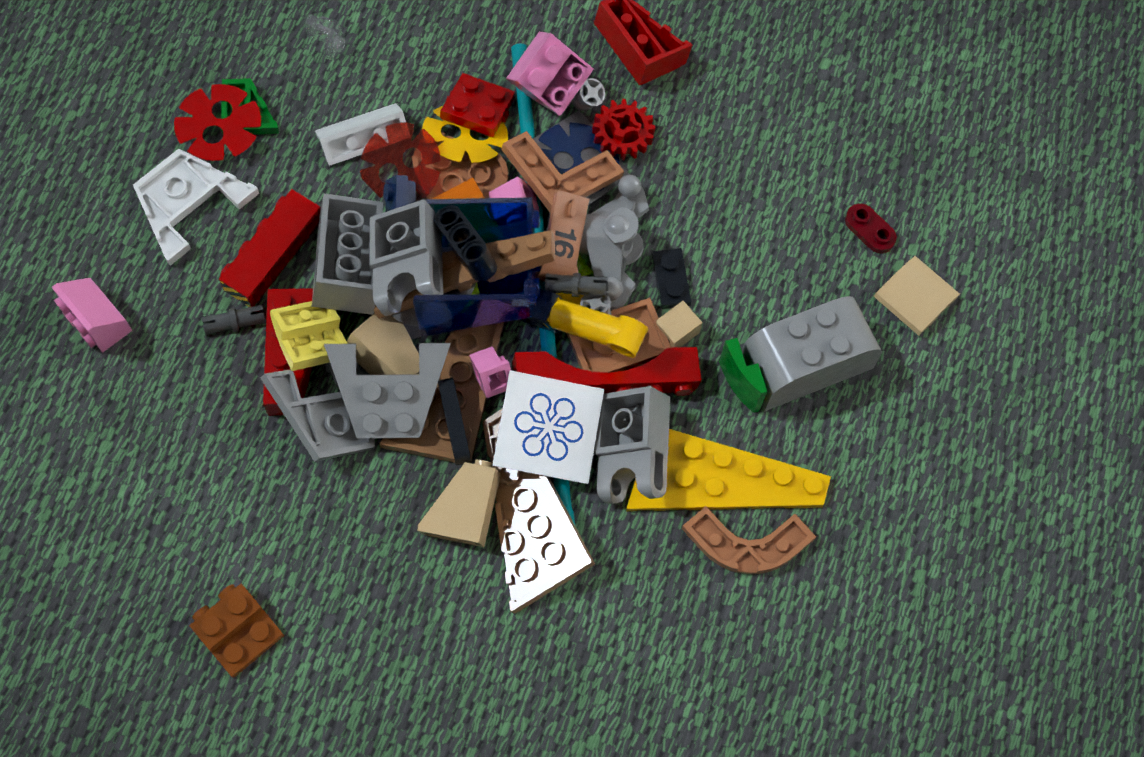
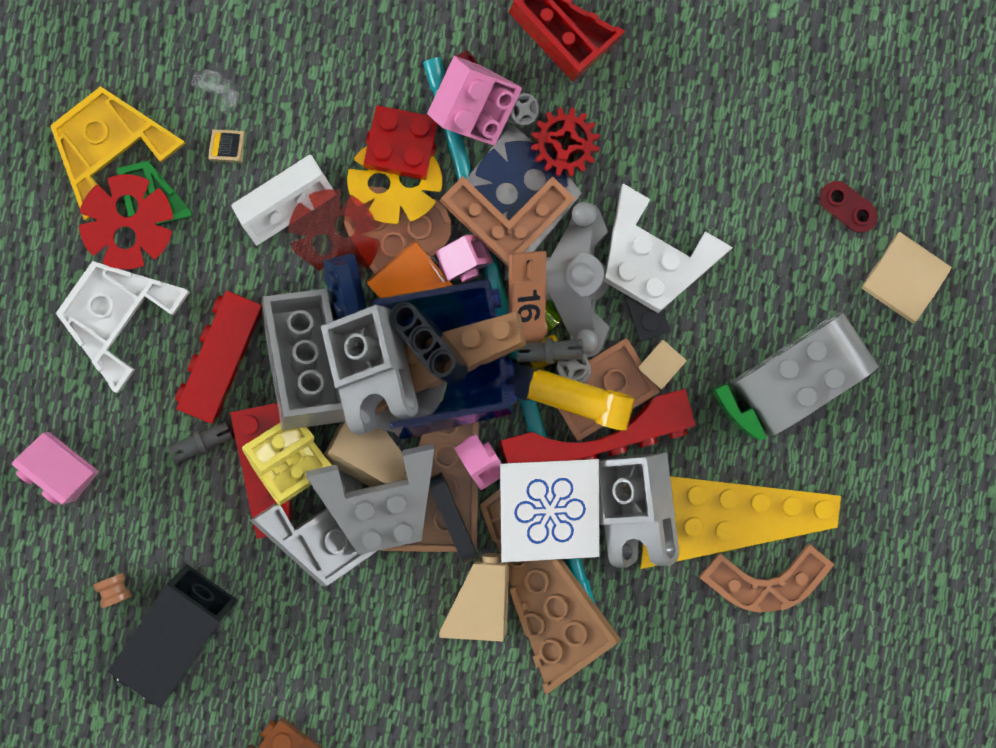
camera: 10 degrees left, 20 degrees up
(113, 434) = (112, 590): none -> nougat wheel
(156, 485) = (172, 635): none -> black slope
(219, 50) = (100, 132): none -> yellow wing
(323, 84) = (226, 146): none -> slope
(681, 241) = (648, 266): none -> white wing

